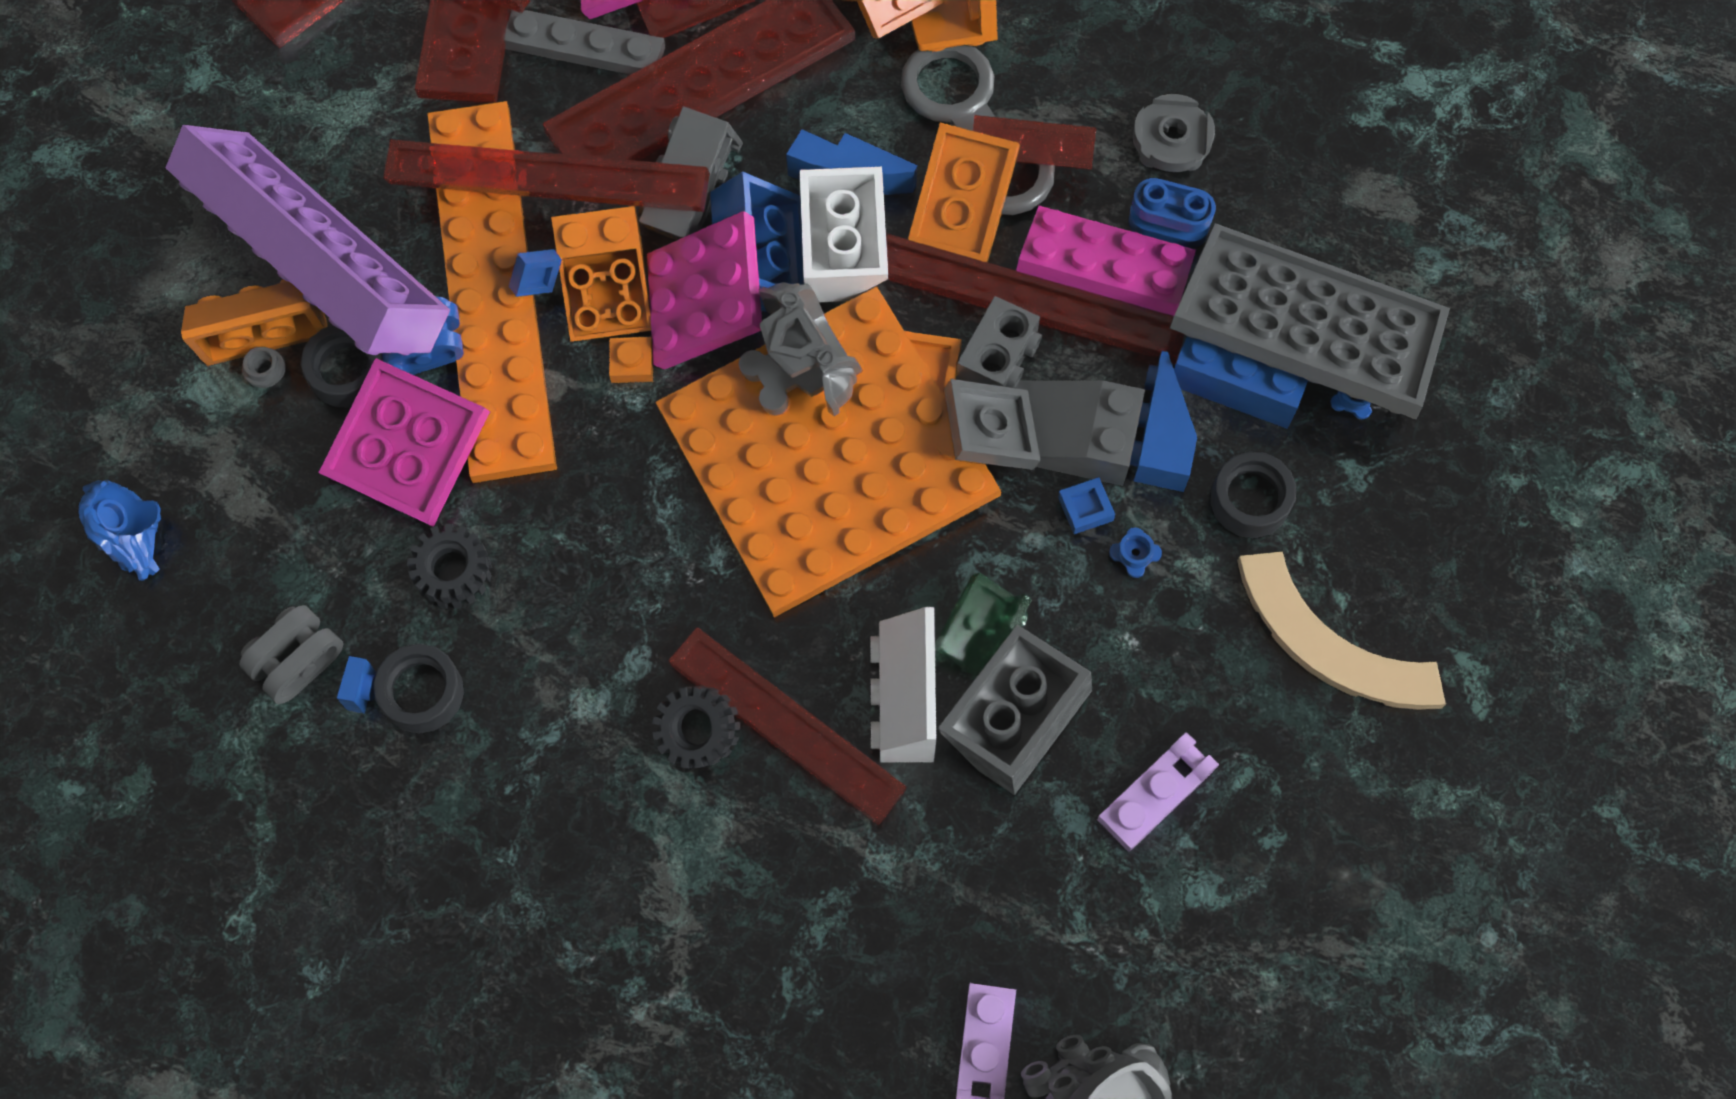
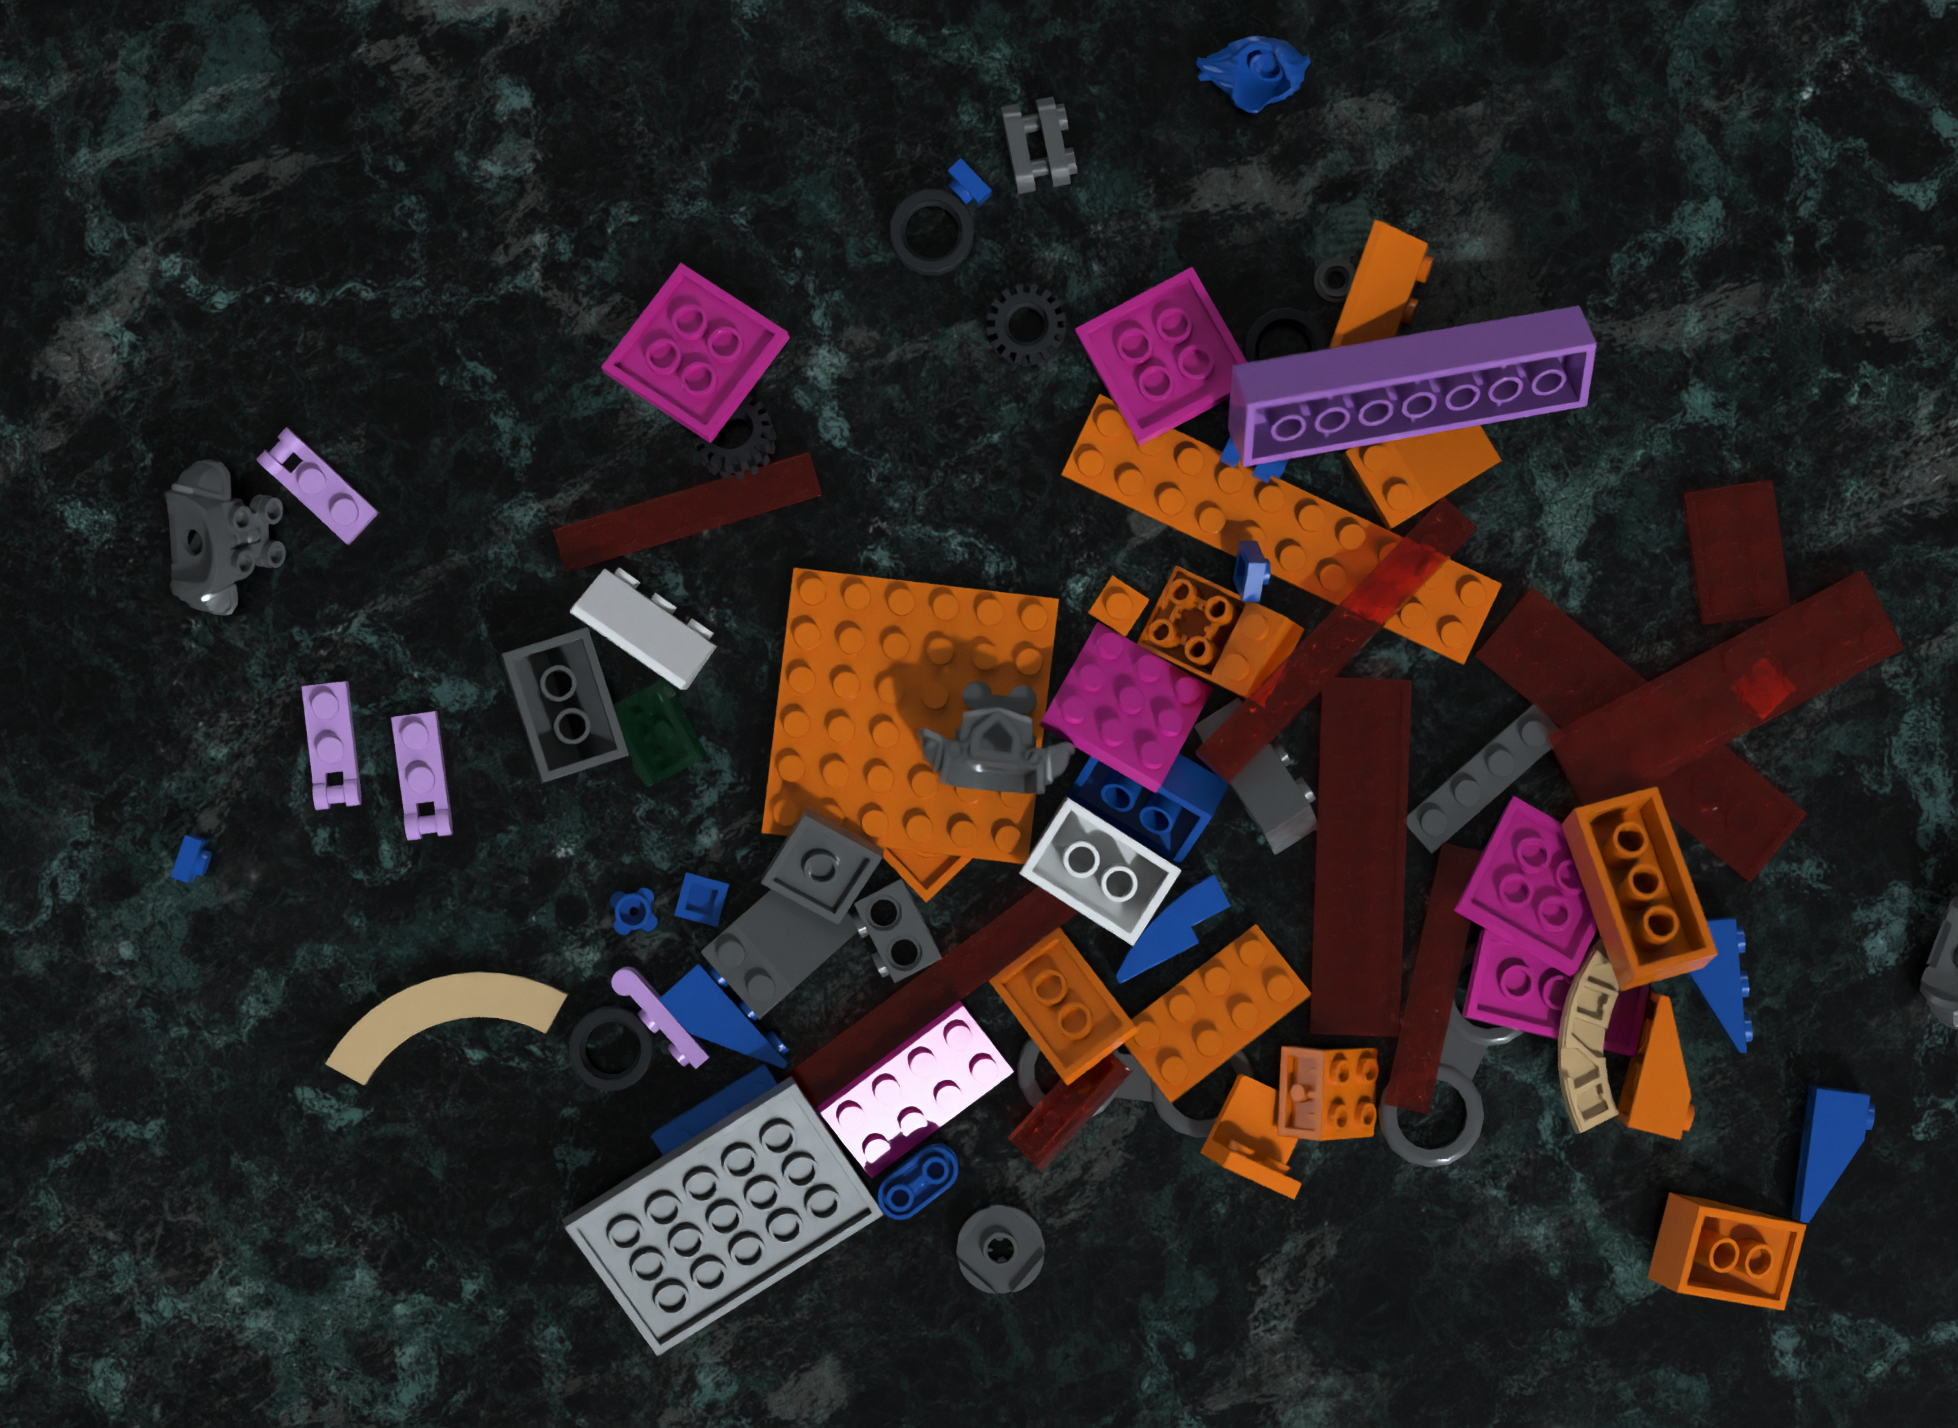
camera: 120 degrees right, 20 degrees up
(387, 212) = (1418, 470): none -> orange slope
(646, 803) = (695, 352): none -> dark pink plate
(887, 97) = (1214, 1013): none -> orange plate
(1189, 885) = (331, 743): none -> lavender plate
(1194, 509) = (655, 1016): none -> lavender plate
(1375, 929) = (191, 859): none -> blue plate

